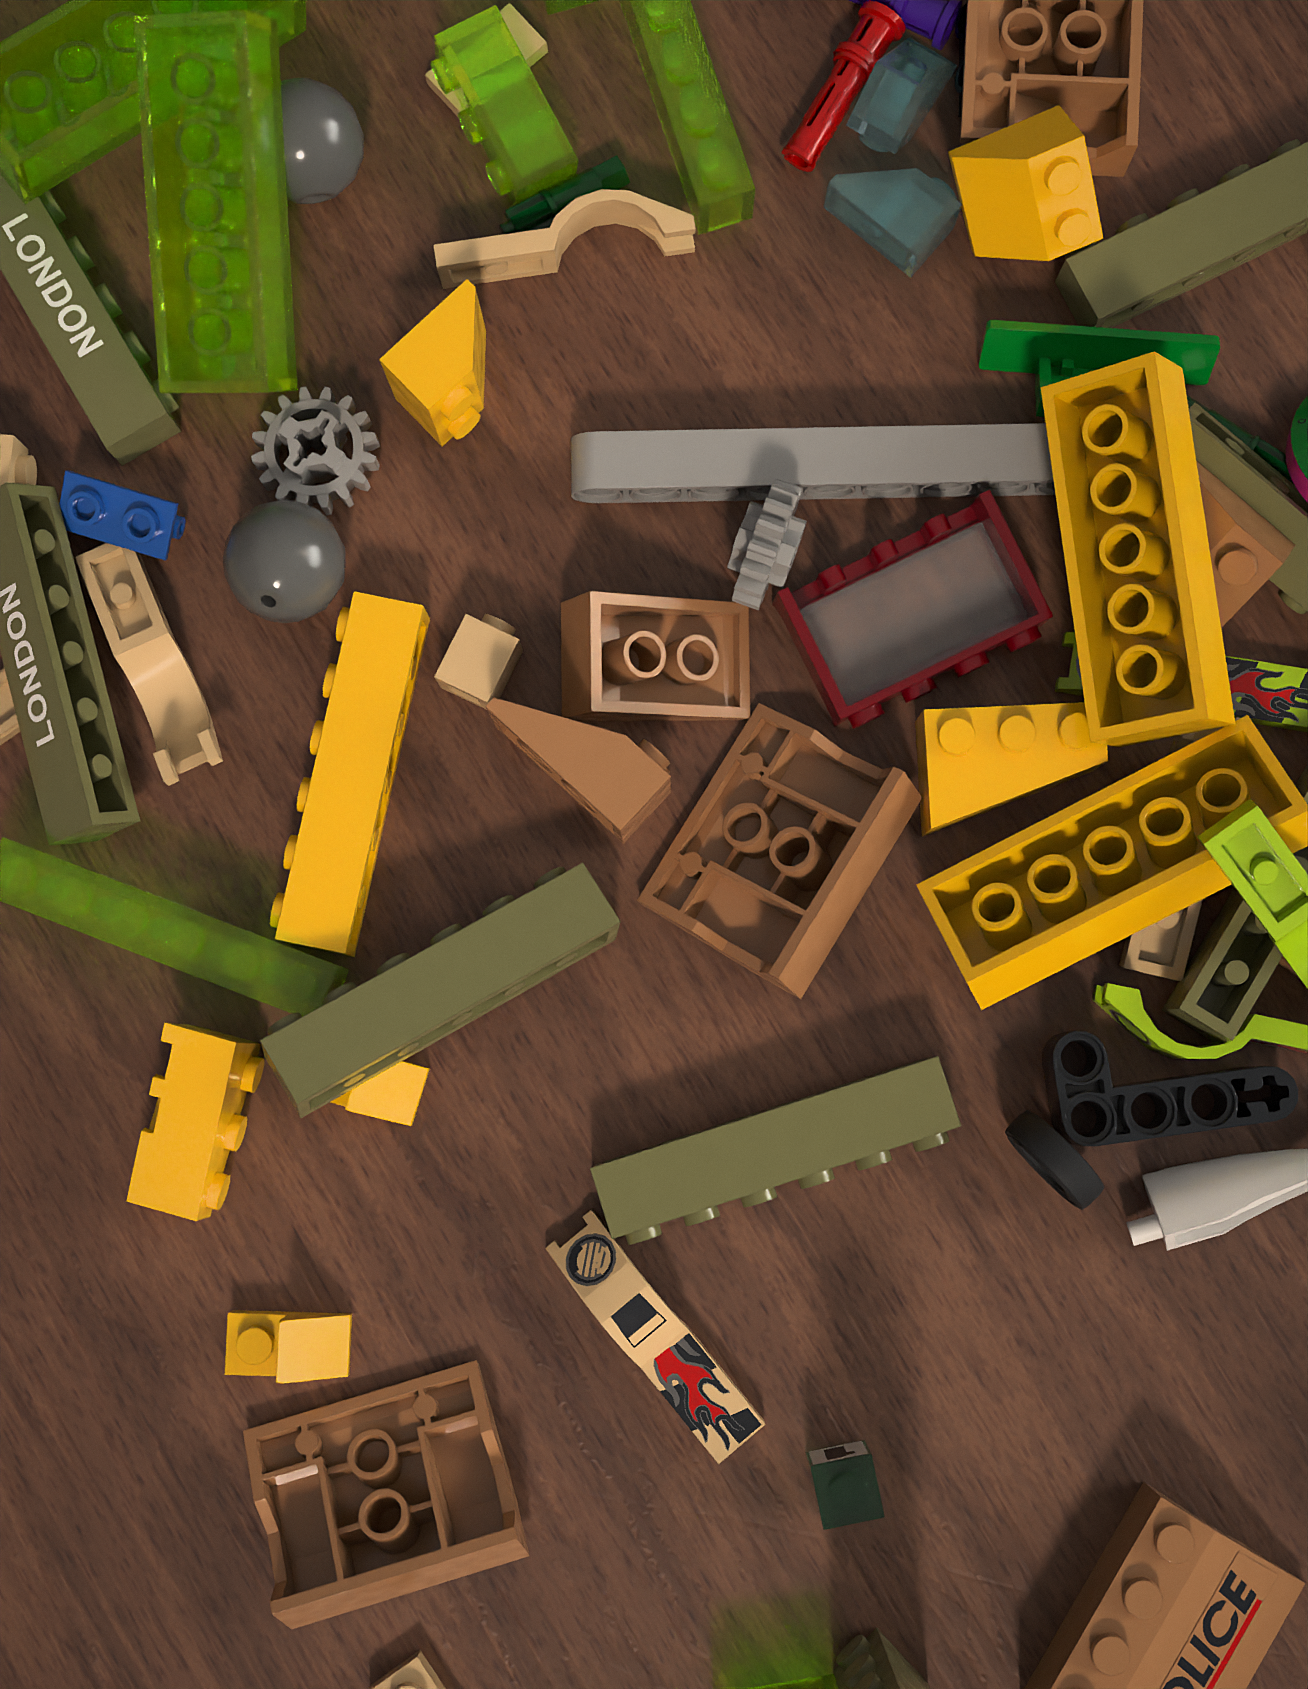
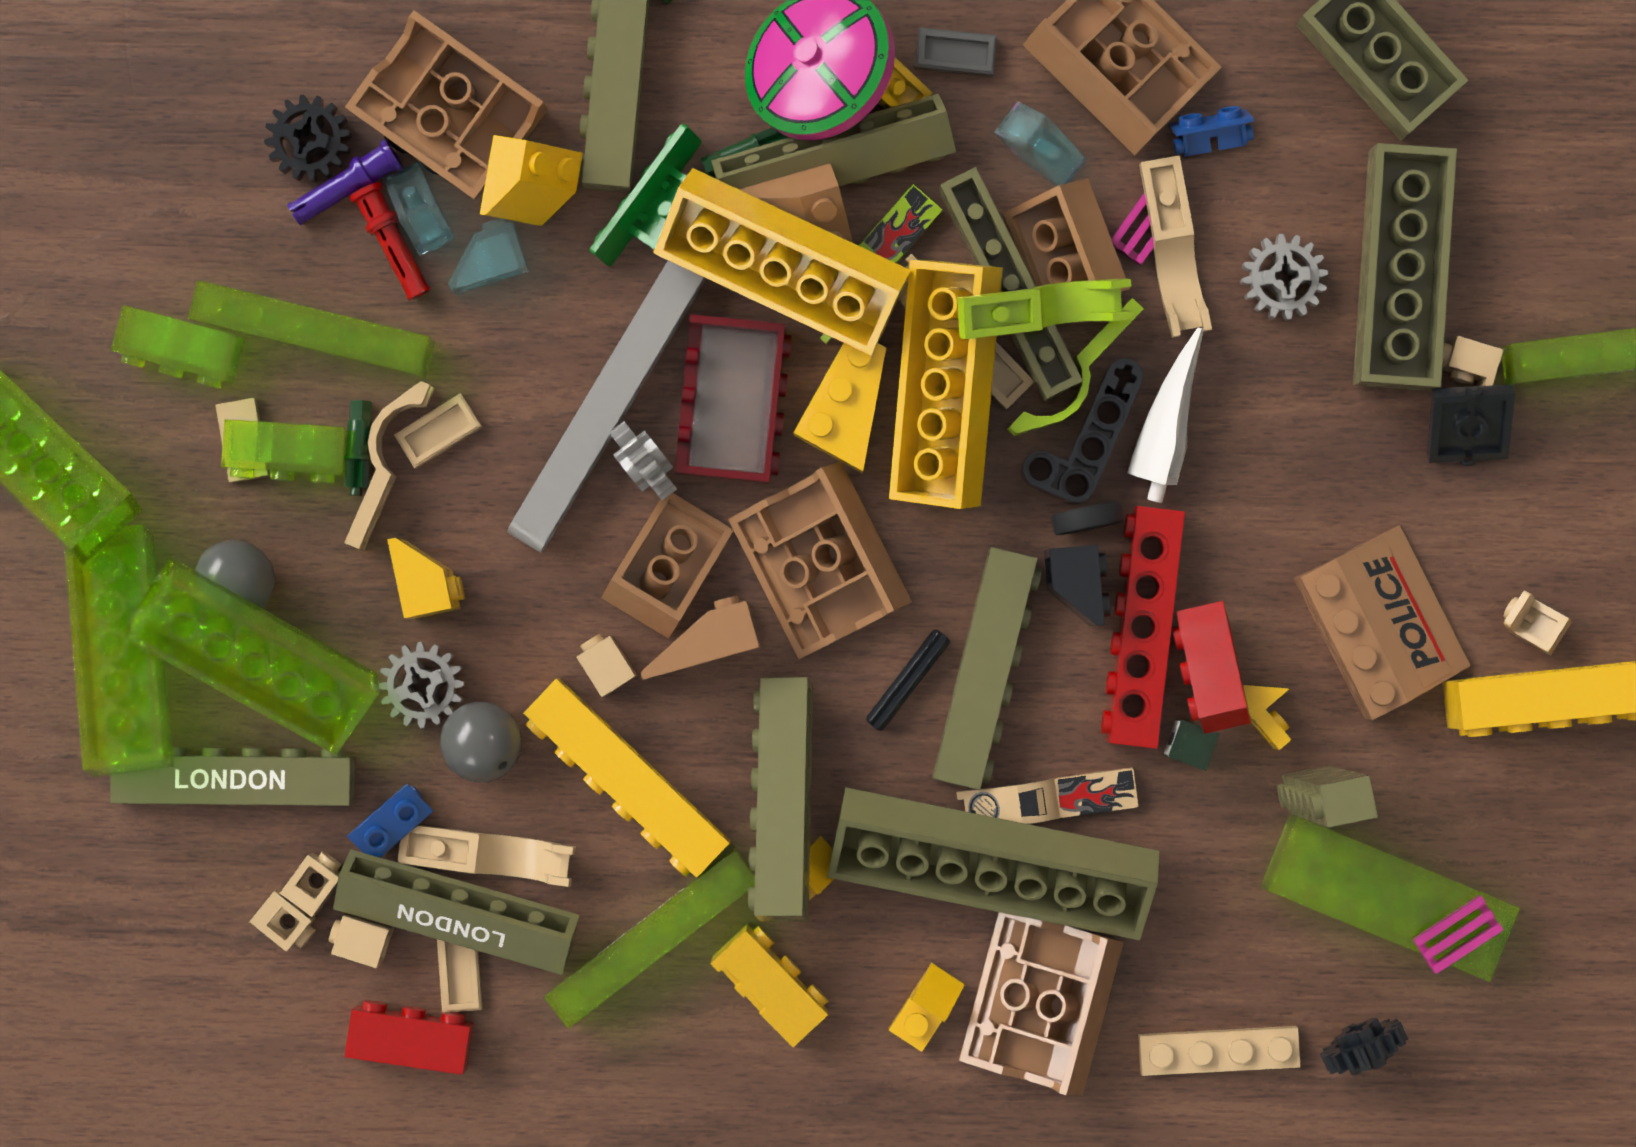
camera: 60 degrees left, 5 degrees up
(528, 1324) = (994, 864): none -> olive brick
(644, 285) = (438, 431): none -> tan tile
(697, 1056) = (908, 680): none -> black axle
(947, 1536) = (1270, 725): none -> yellow slope
(964, 1197) = (1075, 580): none -> black slope
(964, 1452) = (1211, 668): none -> brick
(1104, 1274) = (1167, 529): none -> red brick

